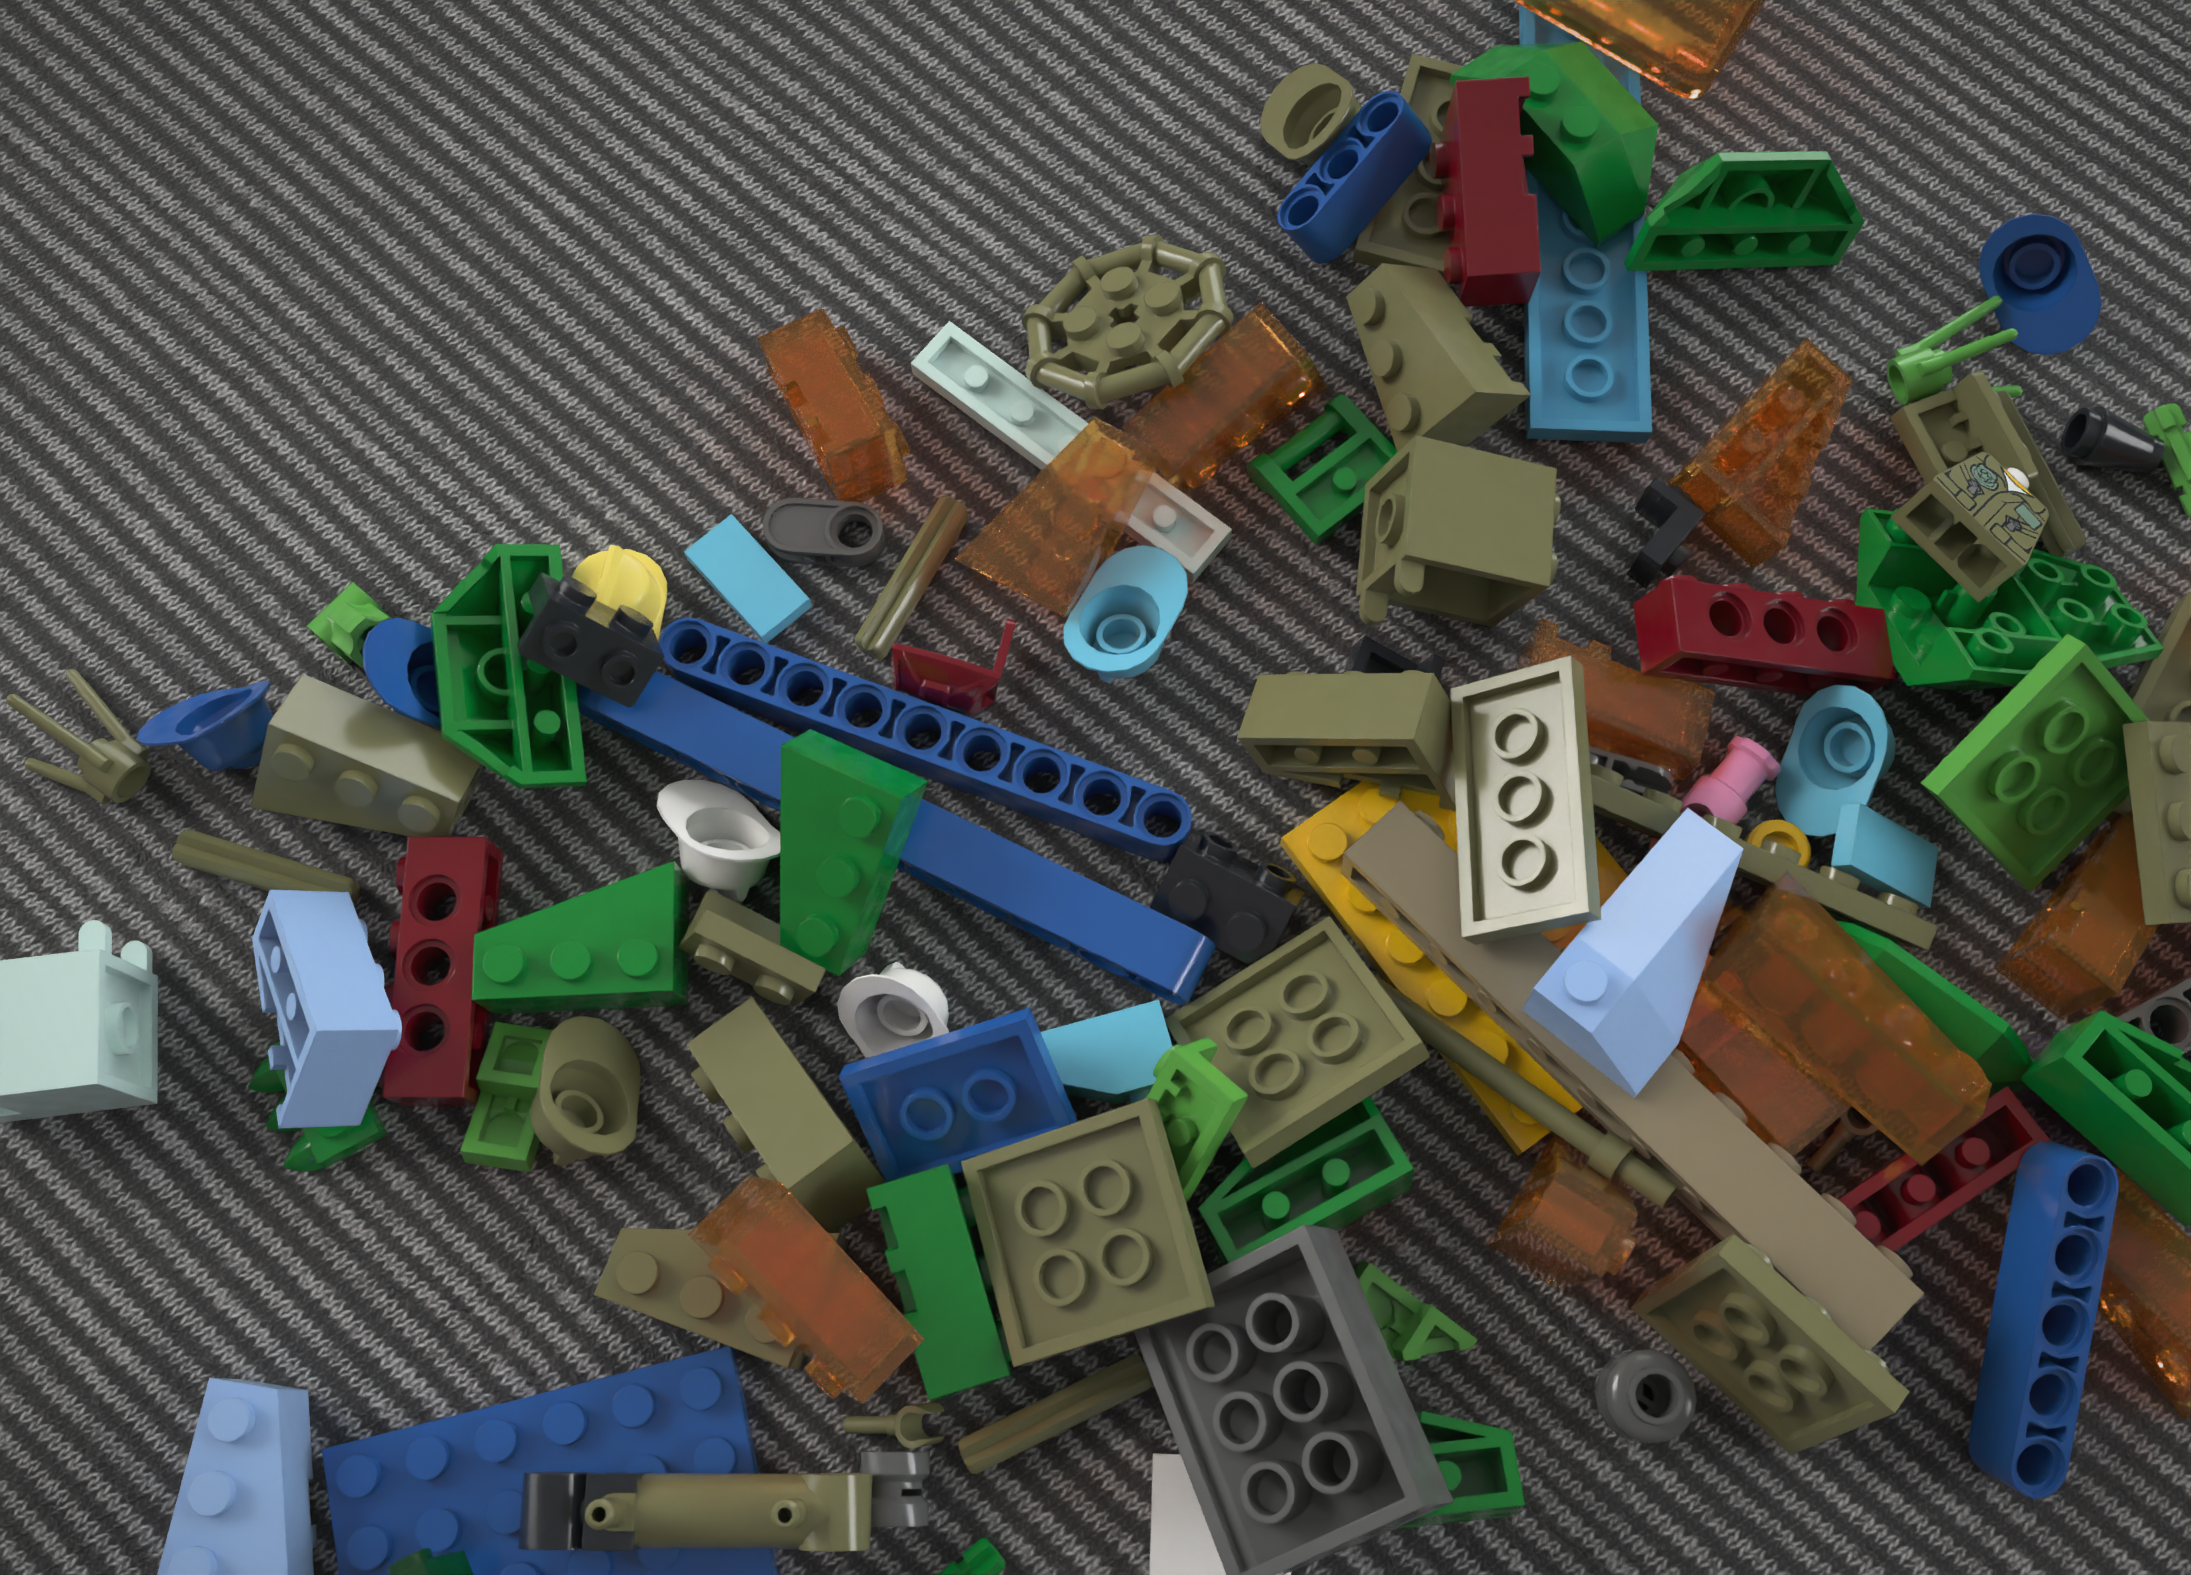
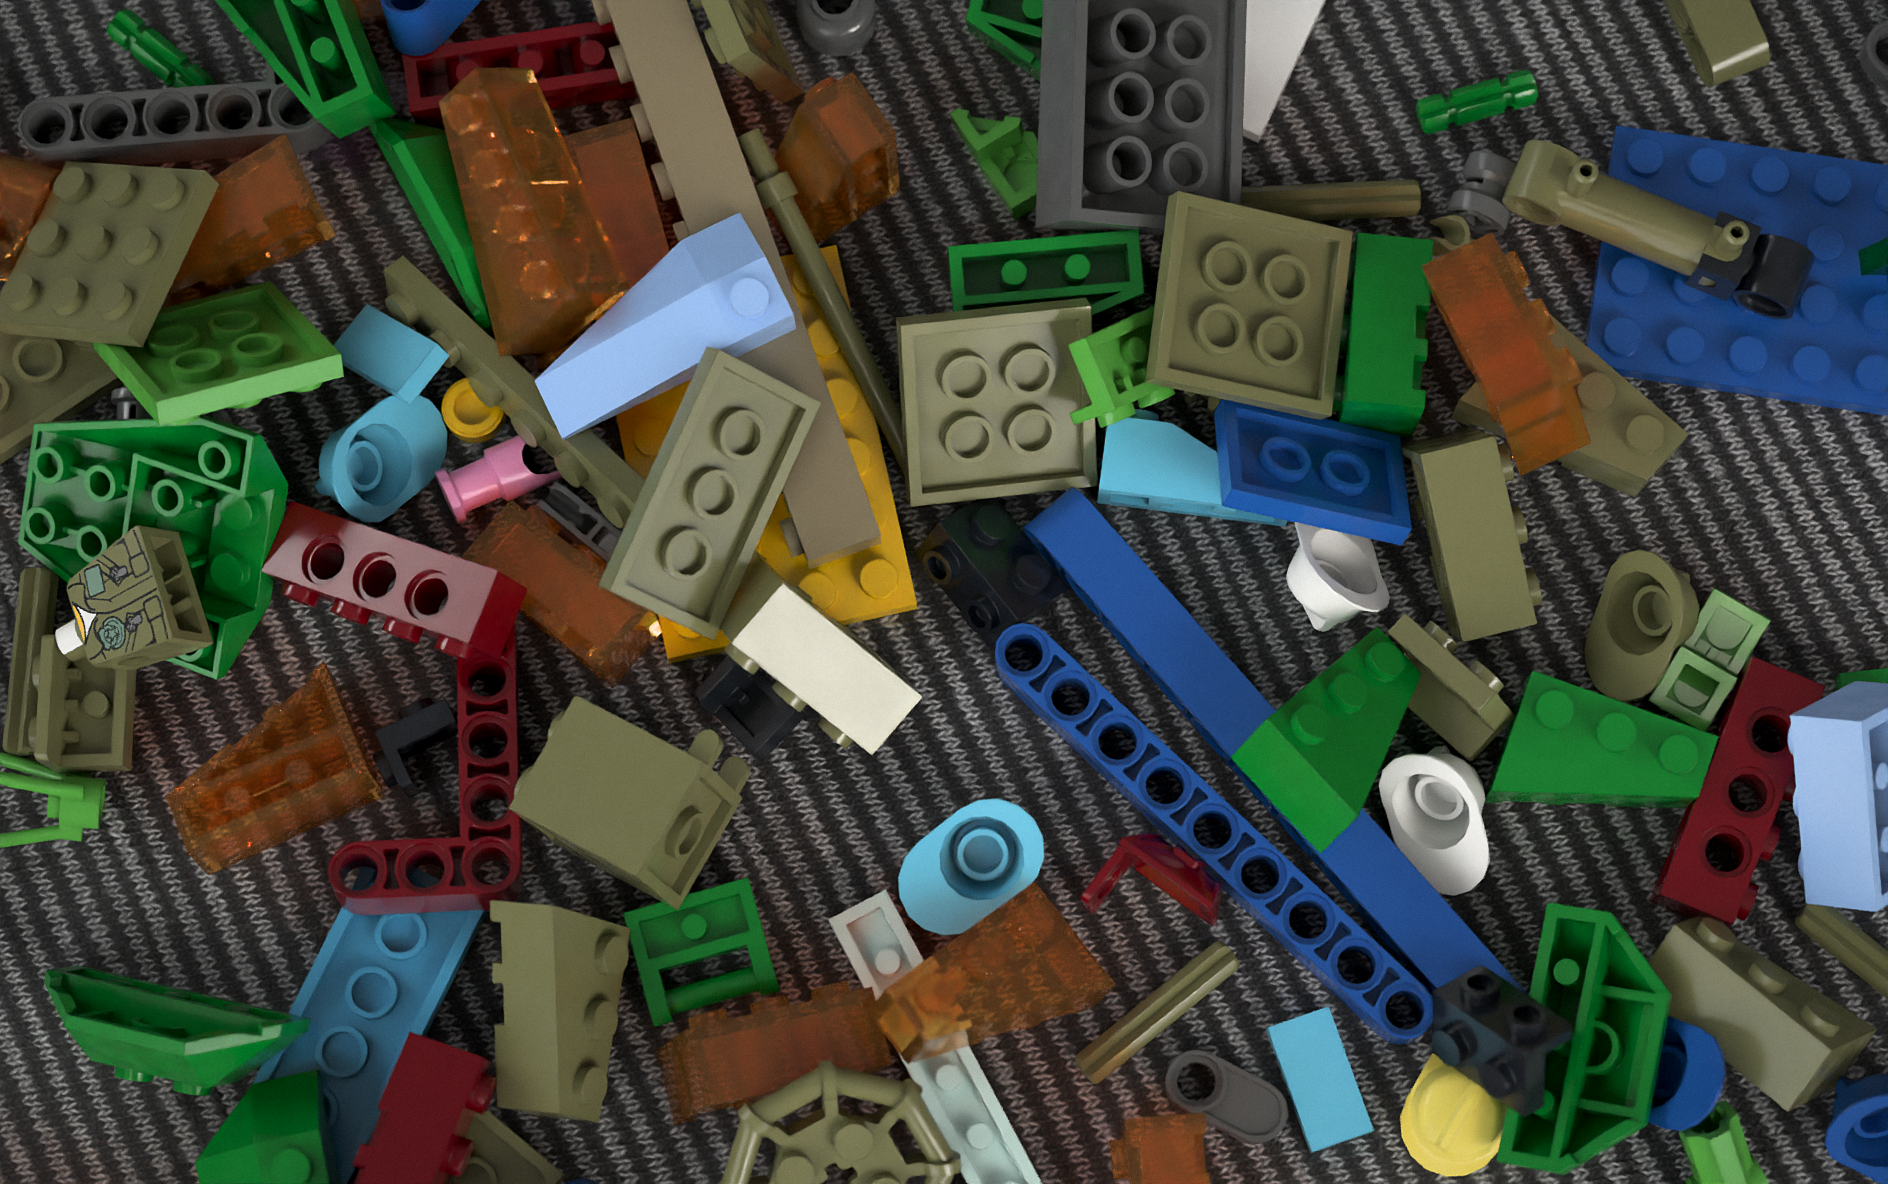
camera: 155 degrees left, 5 degrees up
(1599, 511) = (478, 839): none -> dark red beam

